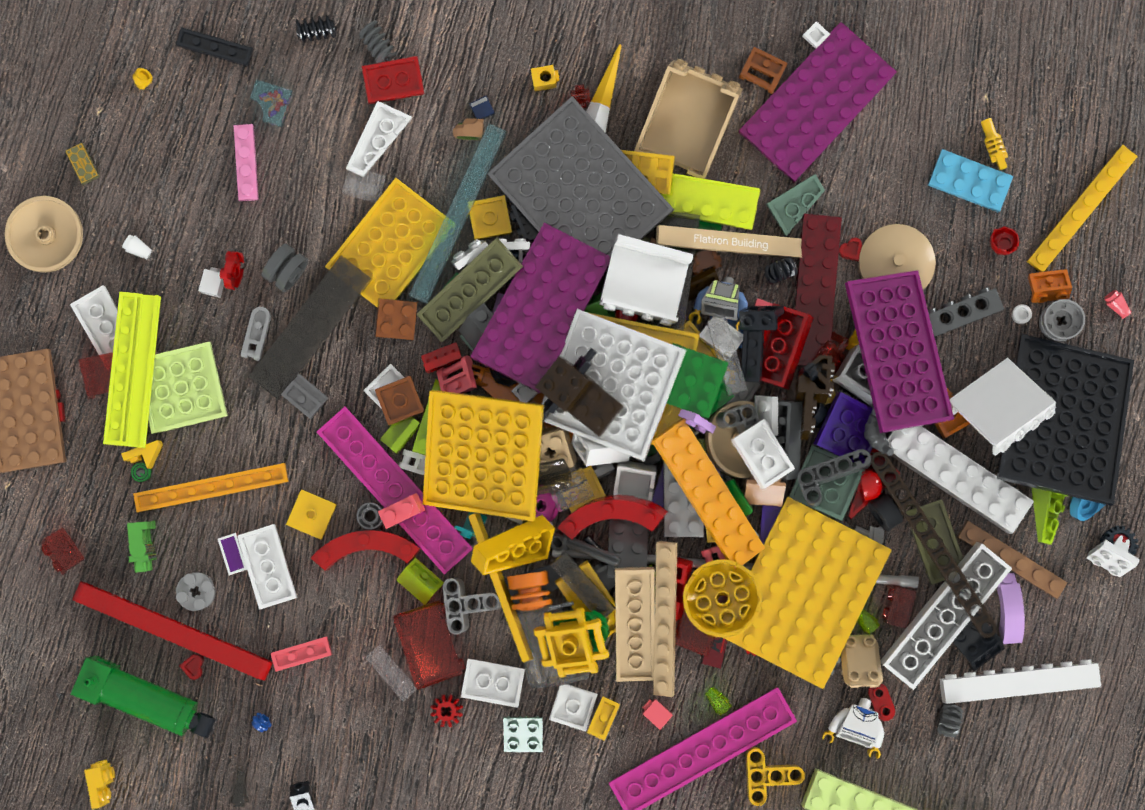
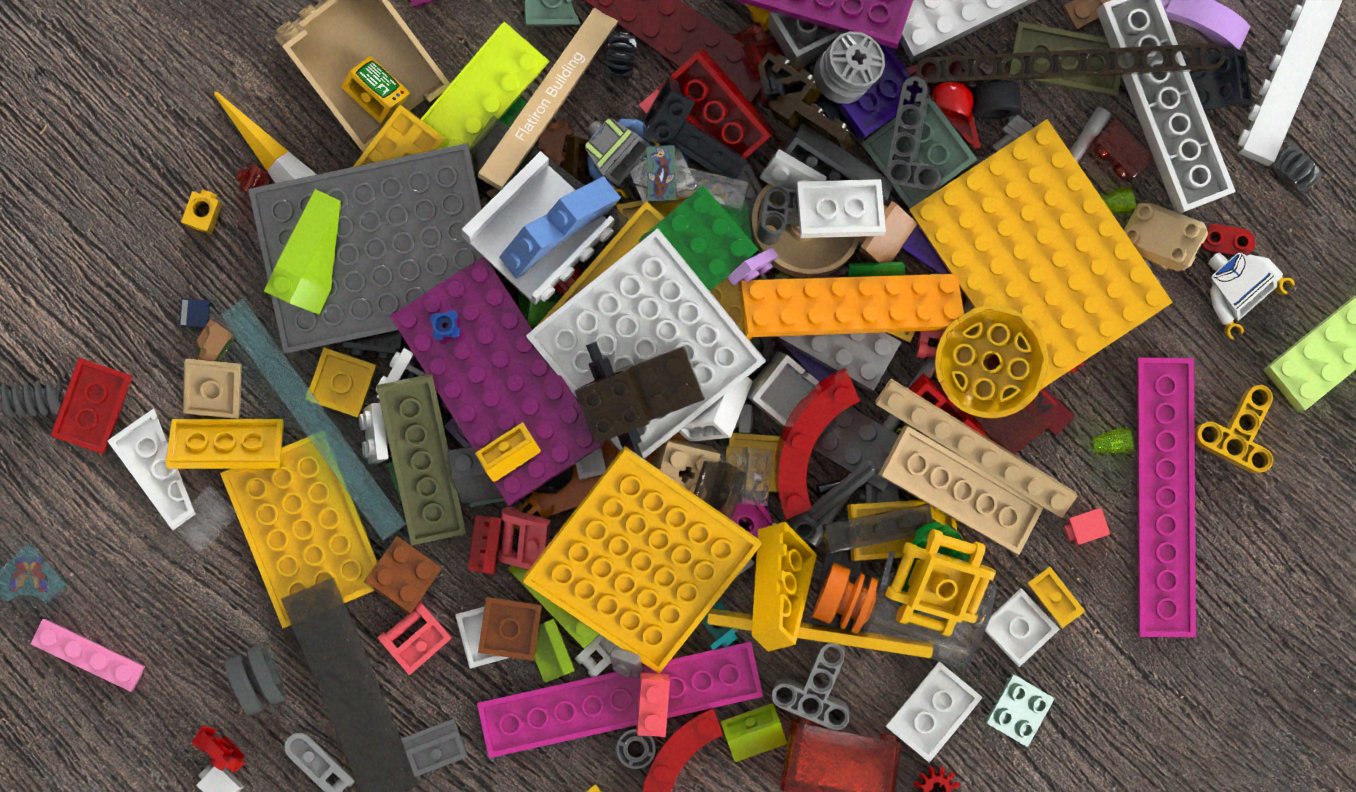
camera: 65 degrees left, 0 degrees up
(359, 353) = (421, 644): none -> coral plate
(414, 170) = (224, 443): none -> yellow tile
(417, 481) = (626, 663): none -> light grey plate
(443, 144) = (212, 388): none -> tan plate
(501, 338) = (508, 452): none -> yellow slope
(547, 155) = (308, 258): none -> lime wedge
(551, 257) = (439, 319): none -> blue plate
(659, 291) = (561, 222): none -> medium blue arch
(675, 136) = (375, 89): none -> yellow brick
(722, 335) = (661, 174): none -> tile
(852, 410) = (849, 67): none -> light grey wheel
(874, 437) = (903, 57): dark grey piece -> none

